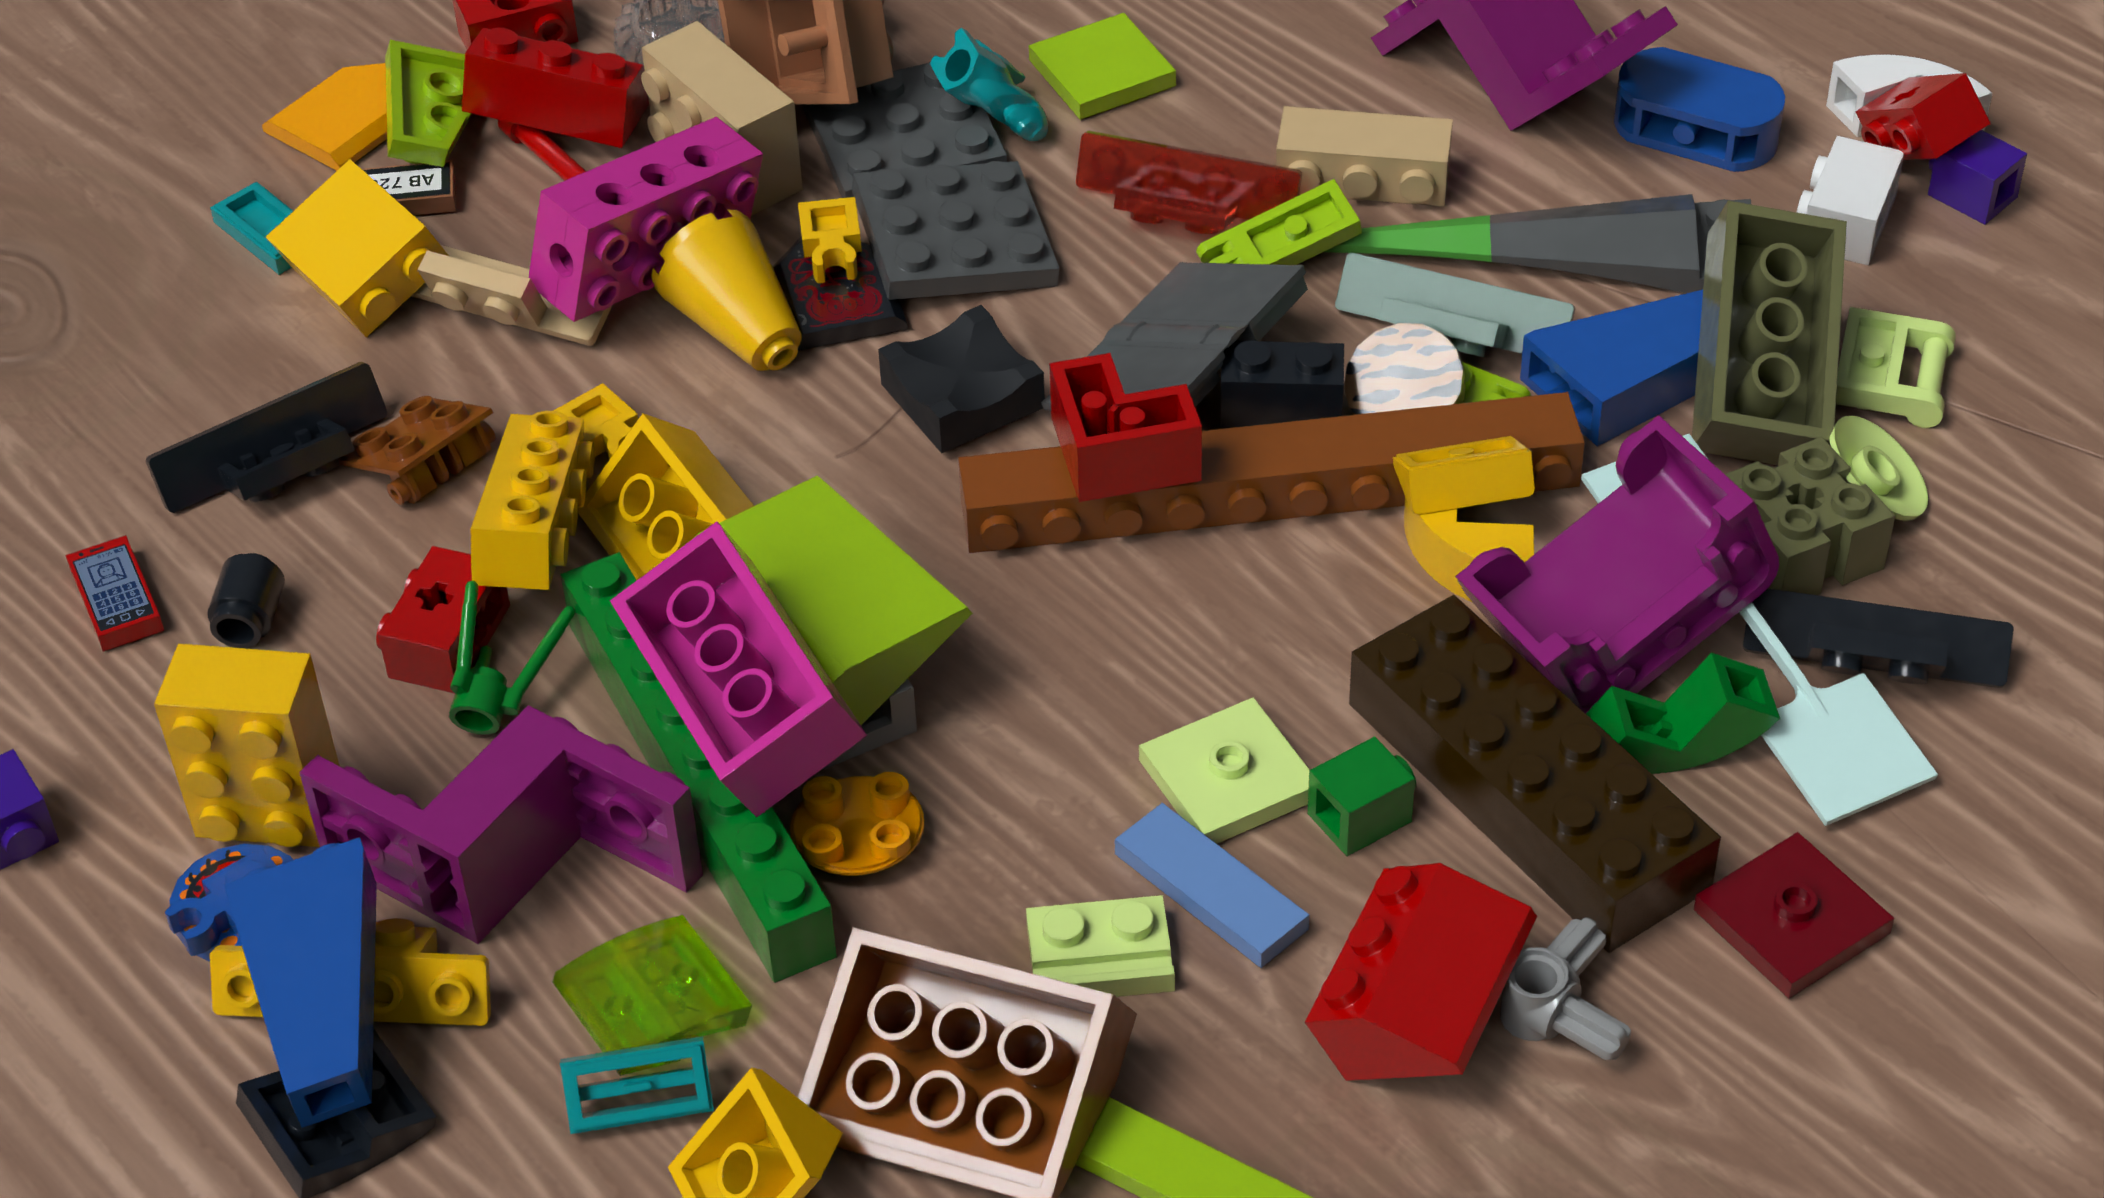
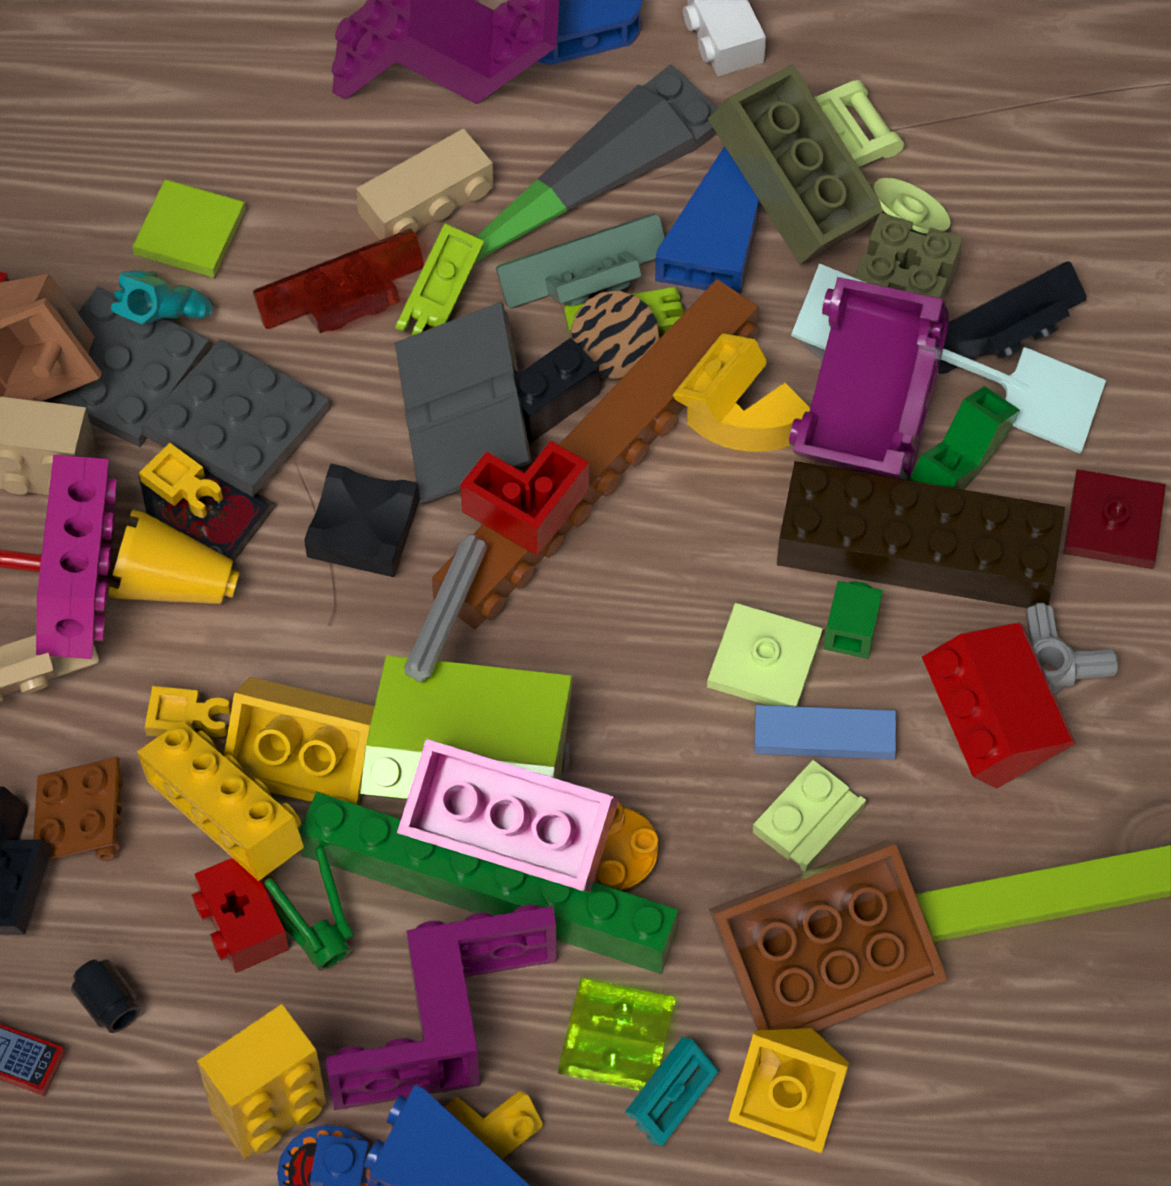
camera: 45 degrees left, 15 degrees up
(921, 473) = (445, 608): none -> light grey axle

